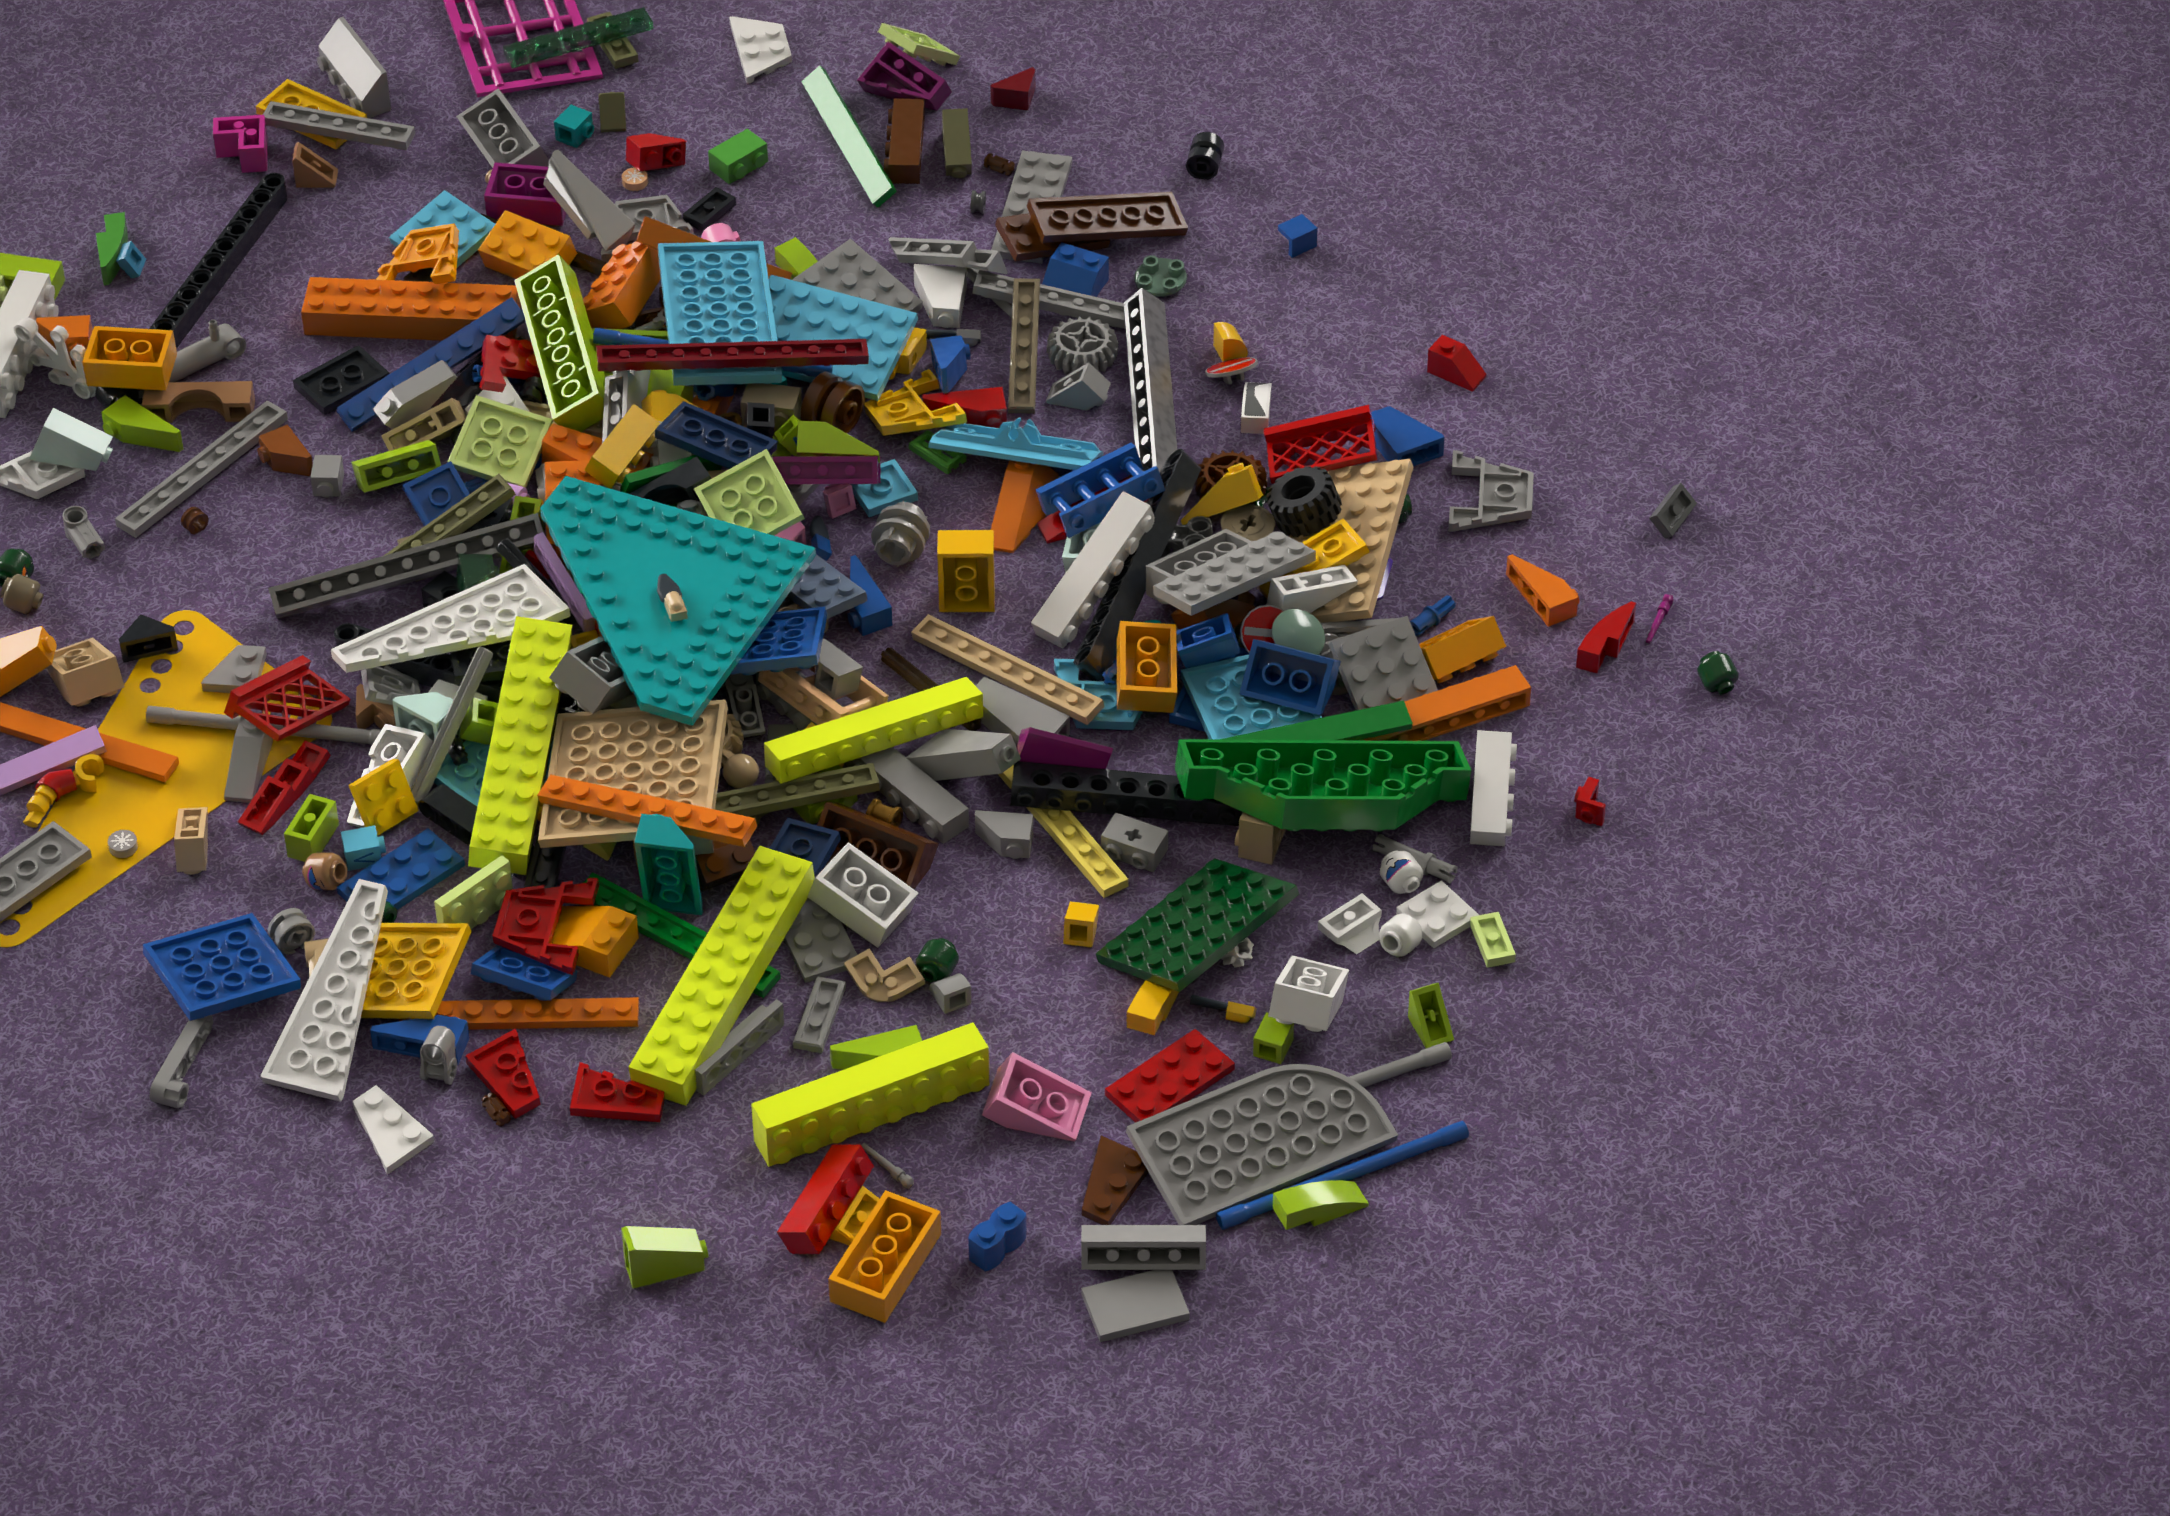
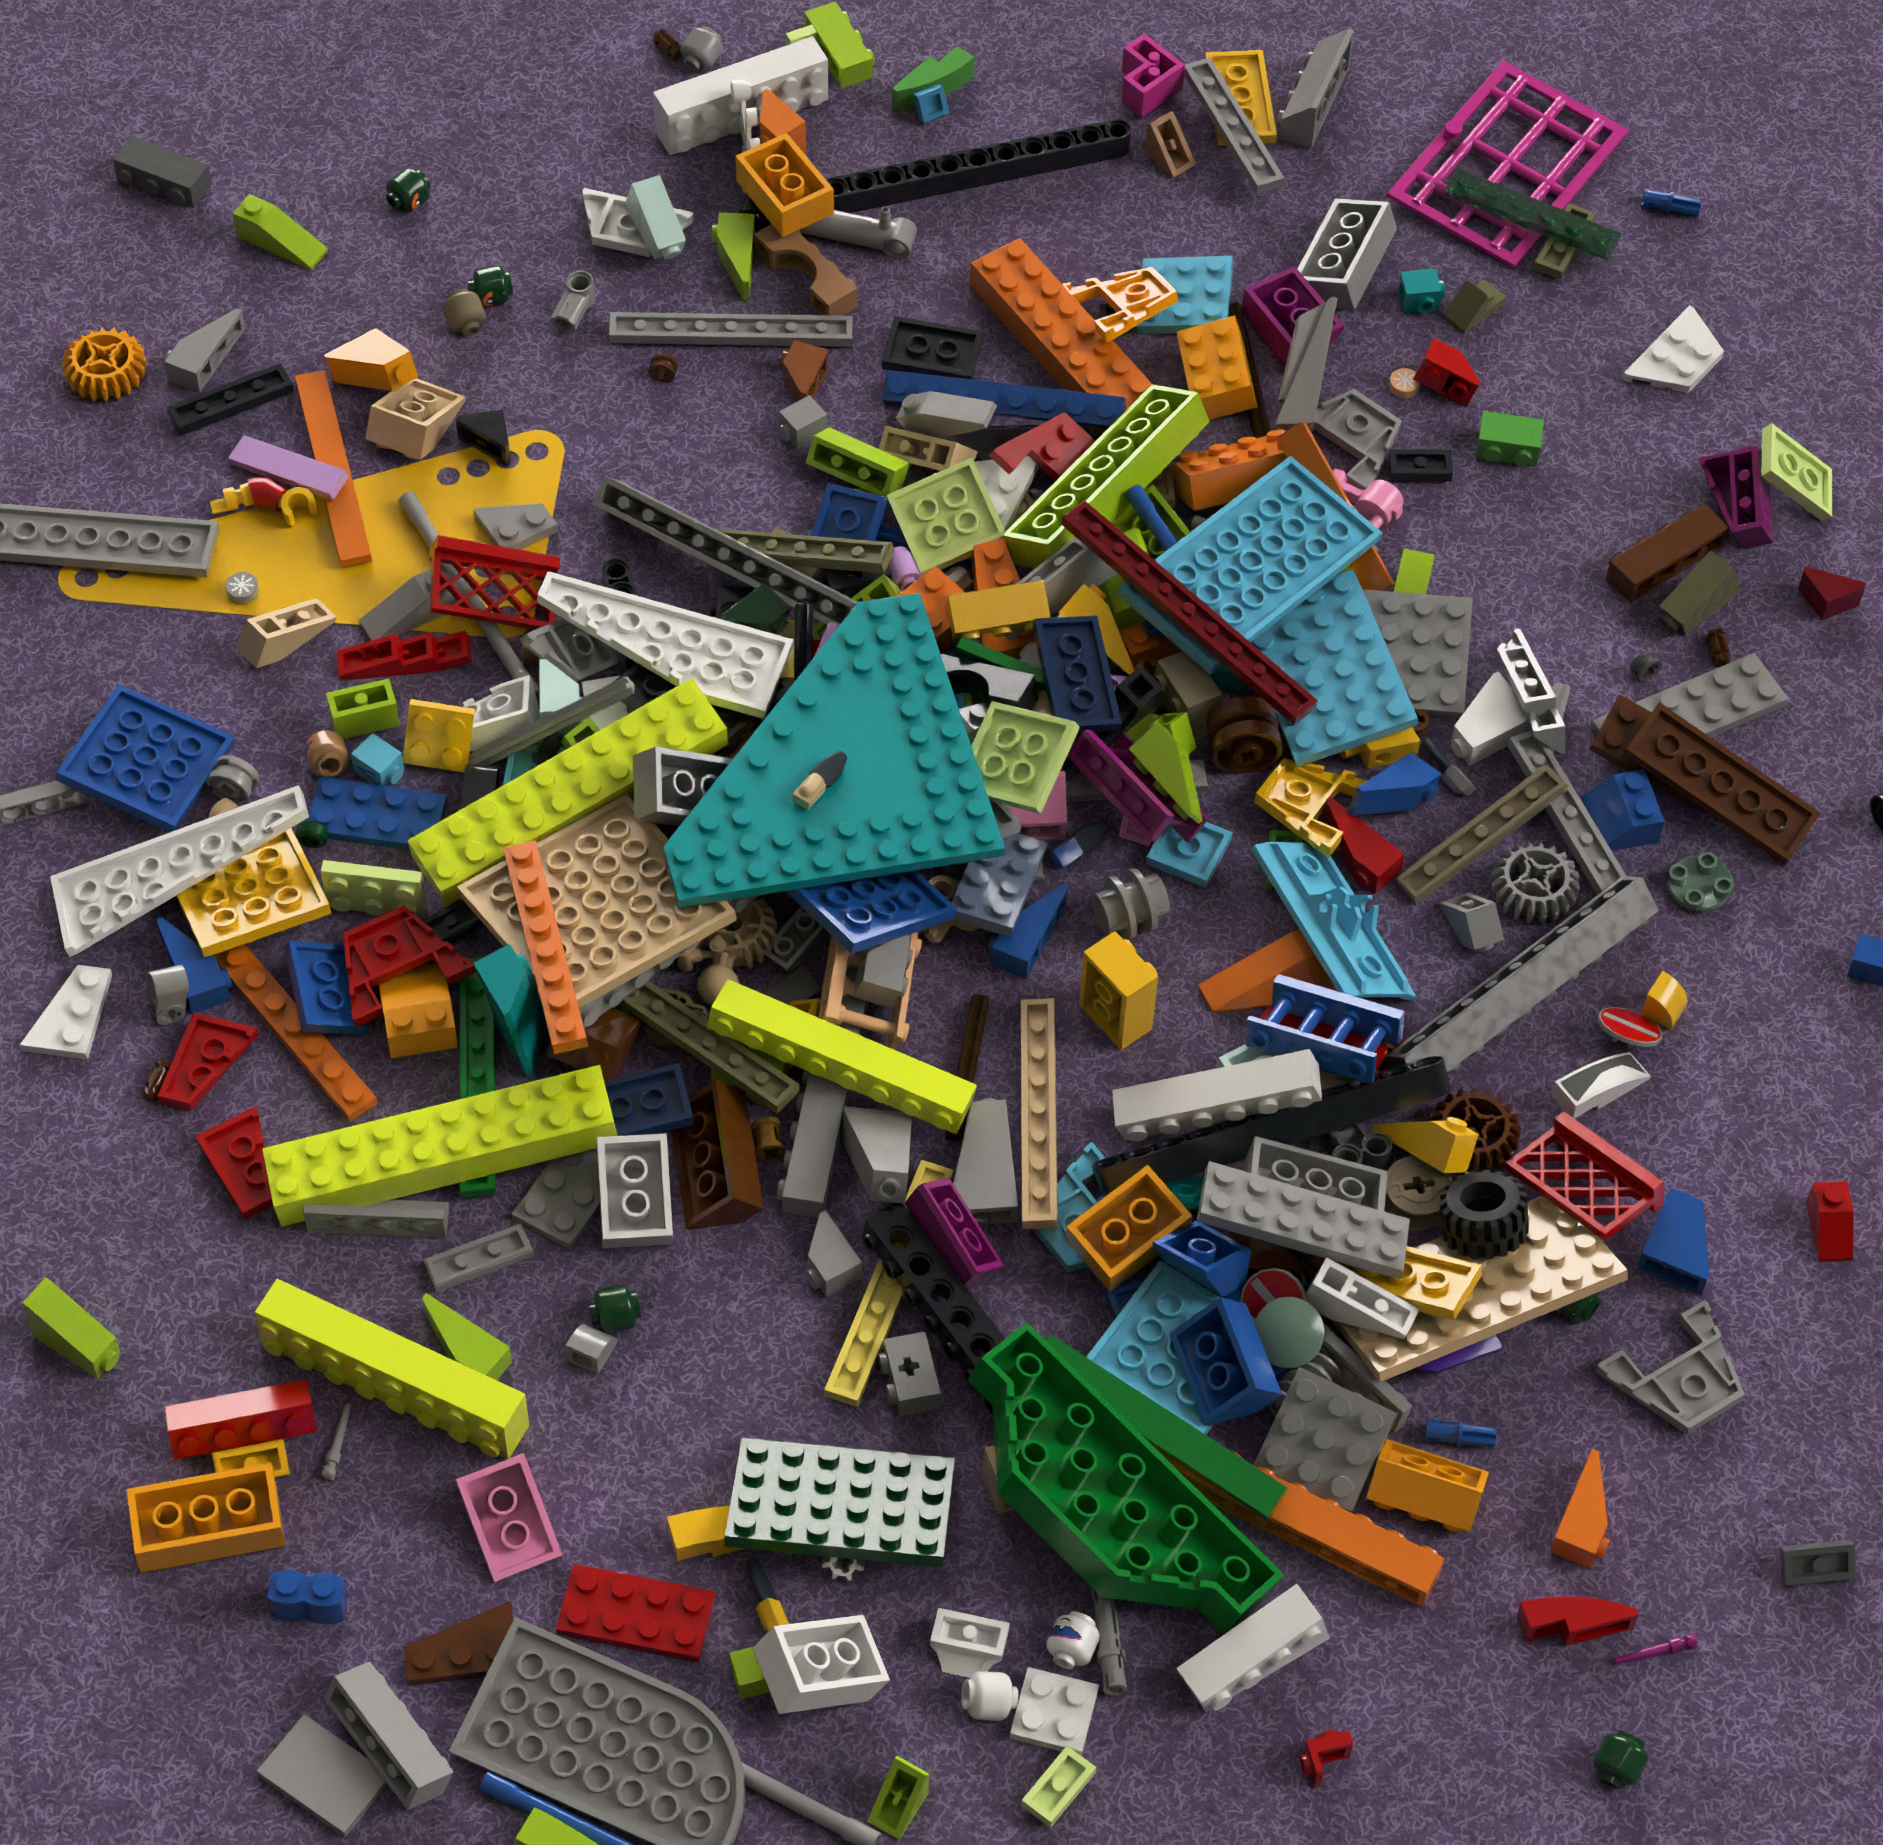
camera: 50 degrees right, 10 degrees up
(849, 136) = (1627, 504): tile -> none
(883, 984) = (554, 1278): tan plate -> none
(1080, 924) = (768, 1398): yellow brick -> none

